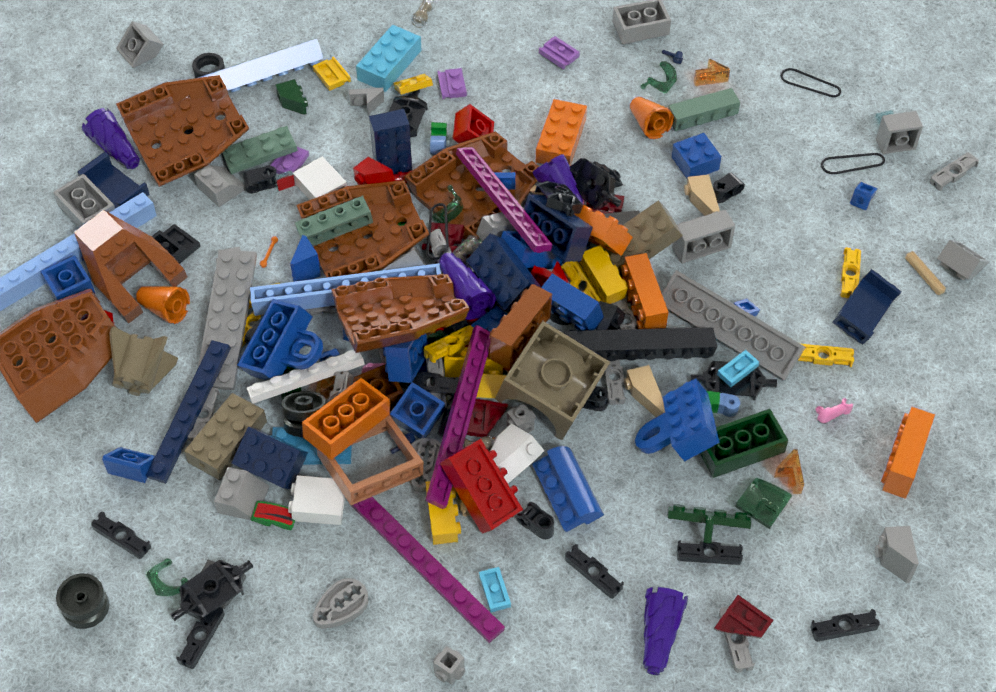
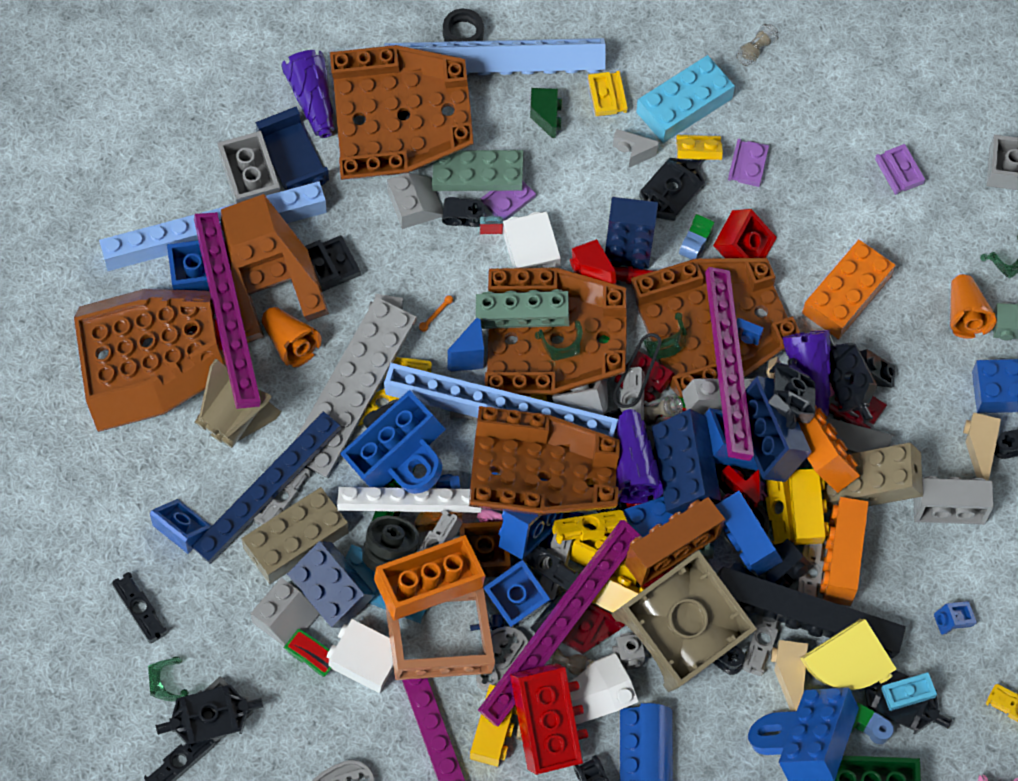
camera: 20 degrees right, 10 degrees up
(82, 601) = (71, 671): pearl dark grey wheel -> none
(108, 294) = (227, 311): none -> magenta plate
(374, 240) = (562, 353): none -> clear green helmet
(685, 360) = (850, 659): none -> light yellow brick
(732, 324) = (930, 630): light grey plate -> none

